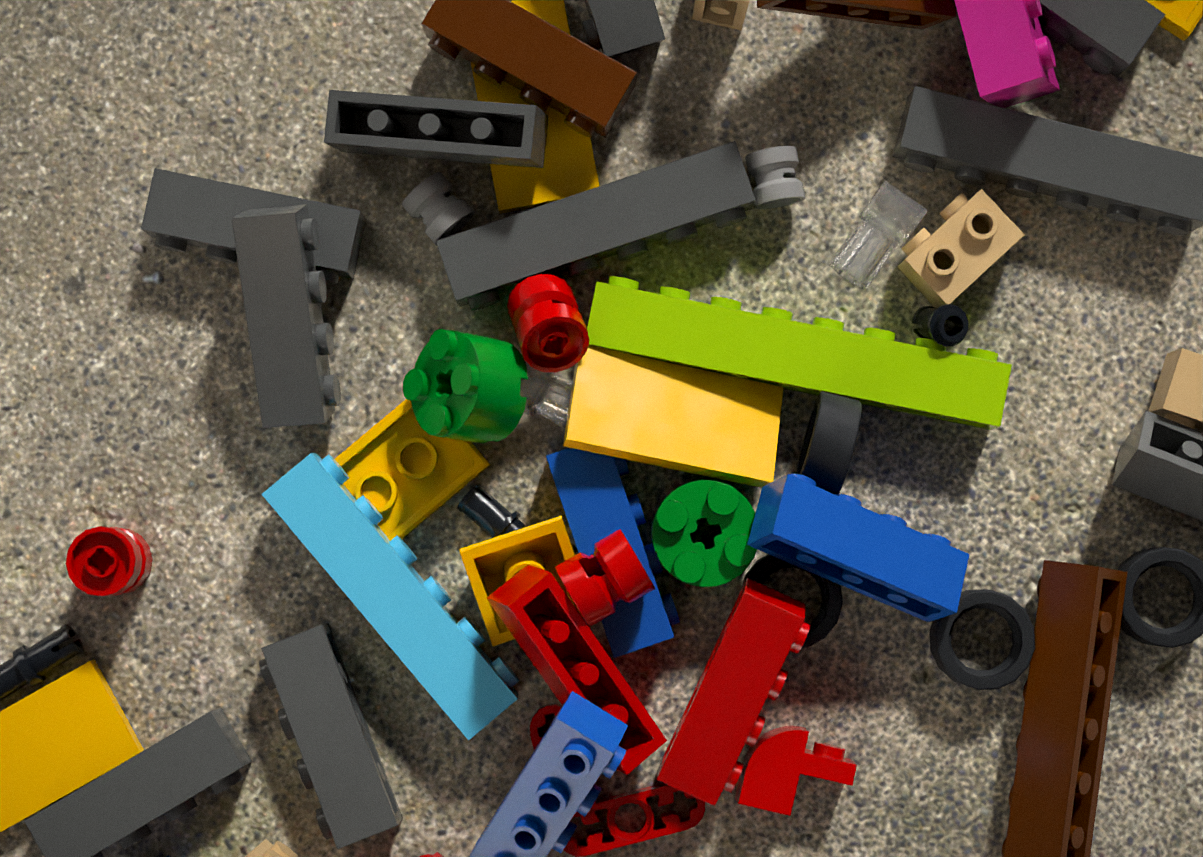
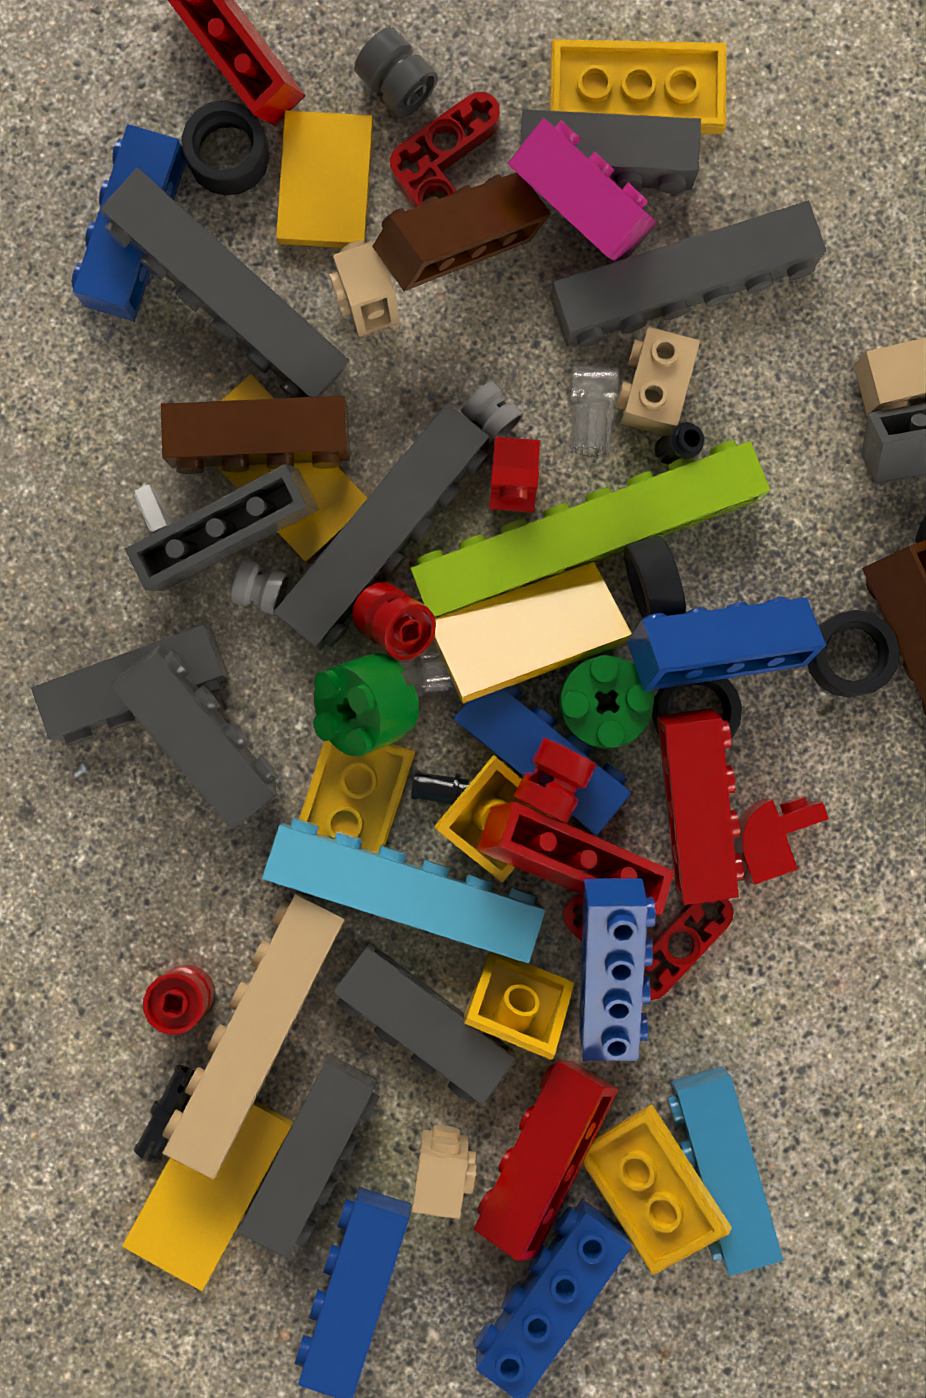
camera: 30 degrees left, 0 degrees up
(160, 641) = (254, 1035): none -> tan brick
(381, 67) = (152, 508): none -> white tile
(436, 775) = (519, 1004): none -> yellow slope
(757, 253) = (514, 474): none -> red brick

